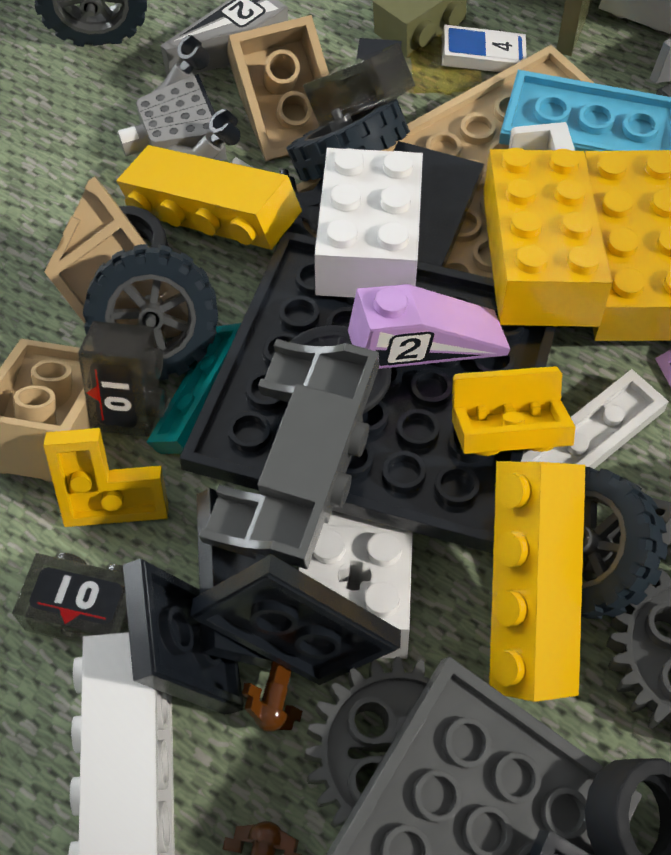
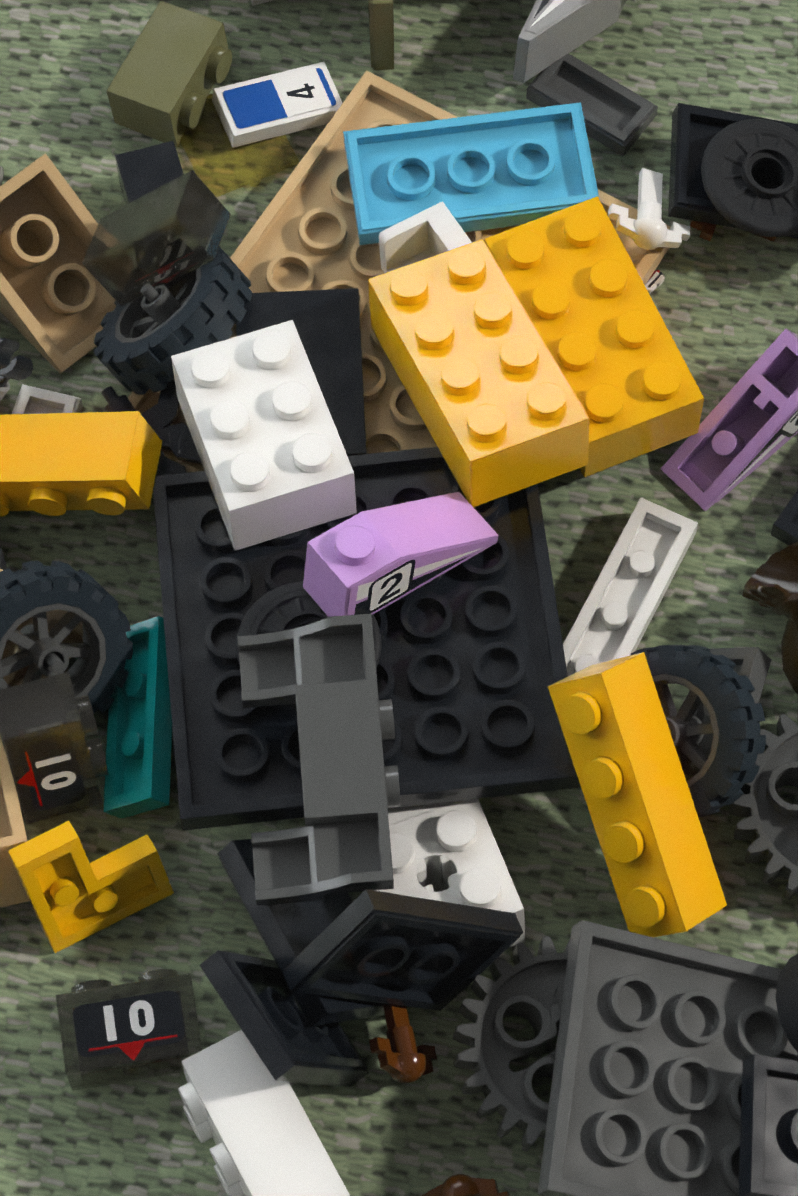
camera: 25 degrees left, 5 degrees up
(510, 411) = (535, 618): yellow bracket -> none

